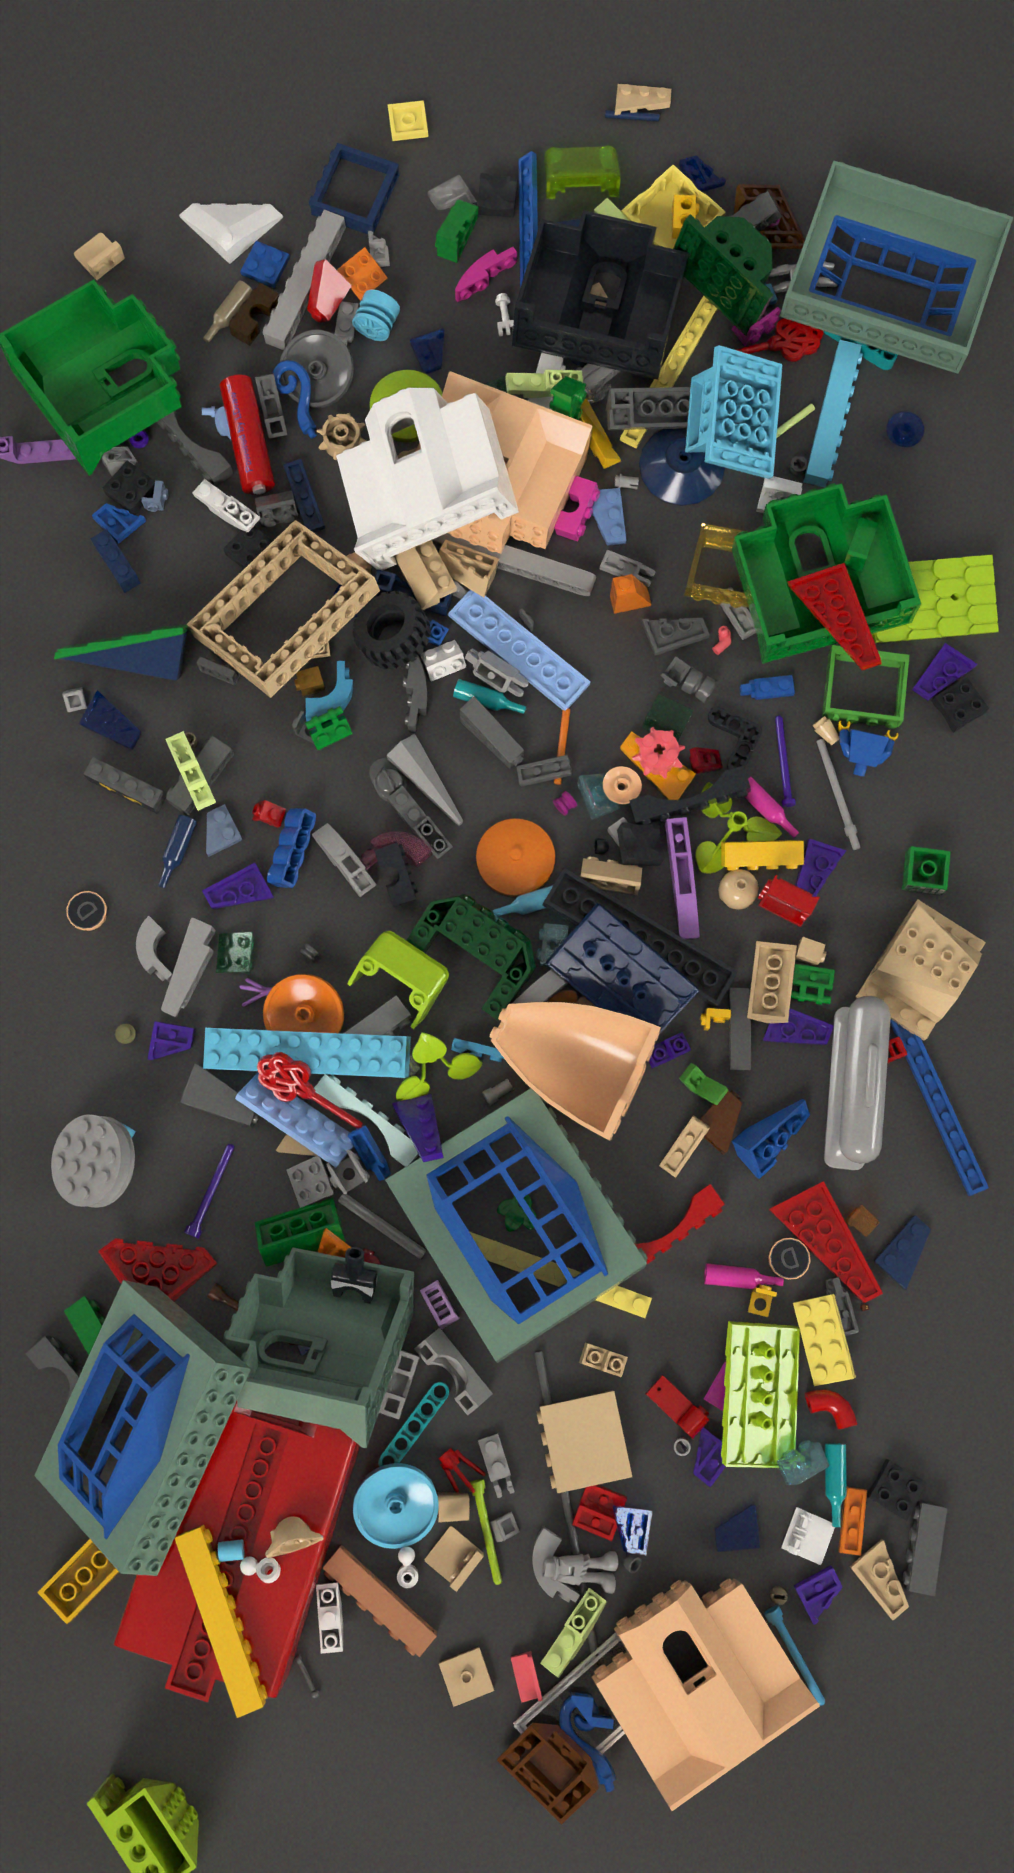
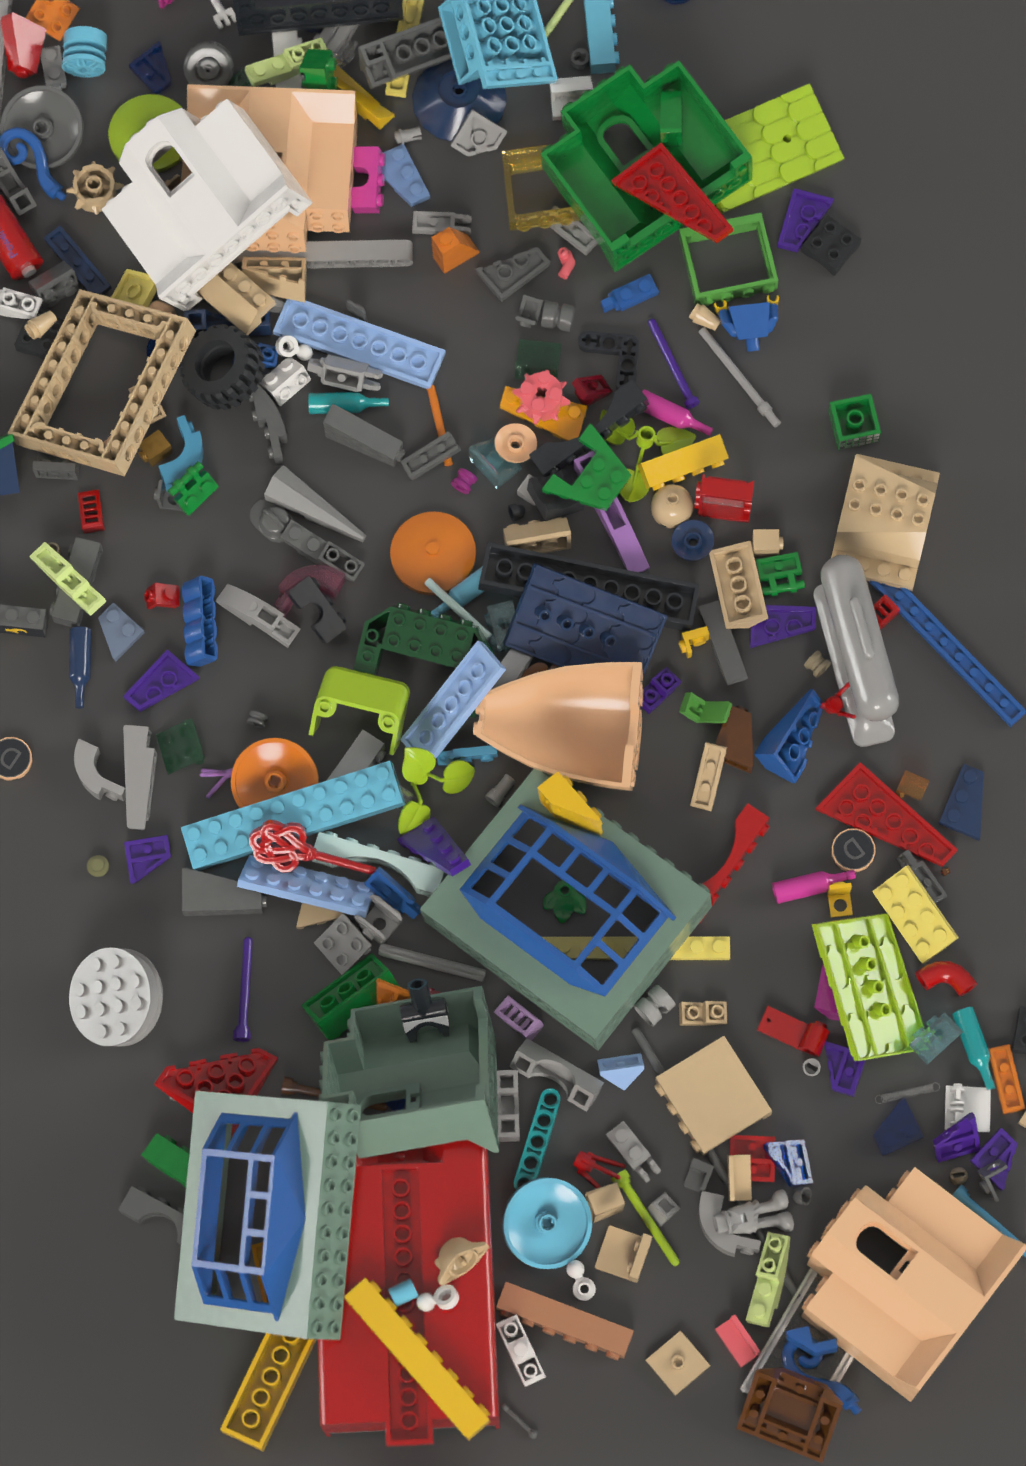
camera: 15 degrees left, 5 degrees down
(233, 731) = (95, 526): none -> red slope
(249, 539) = (39, 325): none -> tan cone
(342, 536) = (135, 288): none -> light yellow plate
(467, 640) = (303, 352): none -> white plate
(477, 362) = (208, 64): none -> dark grey wheel
(482, 1002) = (455, 700): none -> light blue plate
(513, 1384) = (621, 1069): none -> light blue slope
(516, 913) = (459, 610): none -> light aqua bar
(545, 1133) = (568, 805): none -> yellow slope
(546, 1510) = (698, 1176): none -> dark grey panel
(562, 1338) = (654, 1005): none -> light grey wheel
(581, 1527) = (739, 1177): none -> tan panel
(682, 846) = (600, 479): none -> green wing
(686, 502) = (477, 135): none -> light grey plate
(746, 917) = (692, 531): none -> dark blue dish
(765, 1501) = (929, 1086): none -> light grey piece
(789, 1564) = (958, 1139): none -> dark purple wing
(804, 1611) = (985, 1174): none -> dark grey bracket
(816, 1077) = (817, 664): none -> dark tan wheel
(819, 862) = (744, 452): dark purple wing -> none
(819, 1120) = (834, 704): none -> red plant

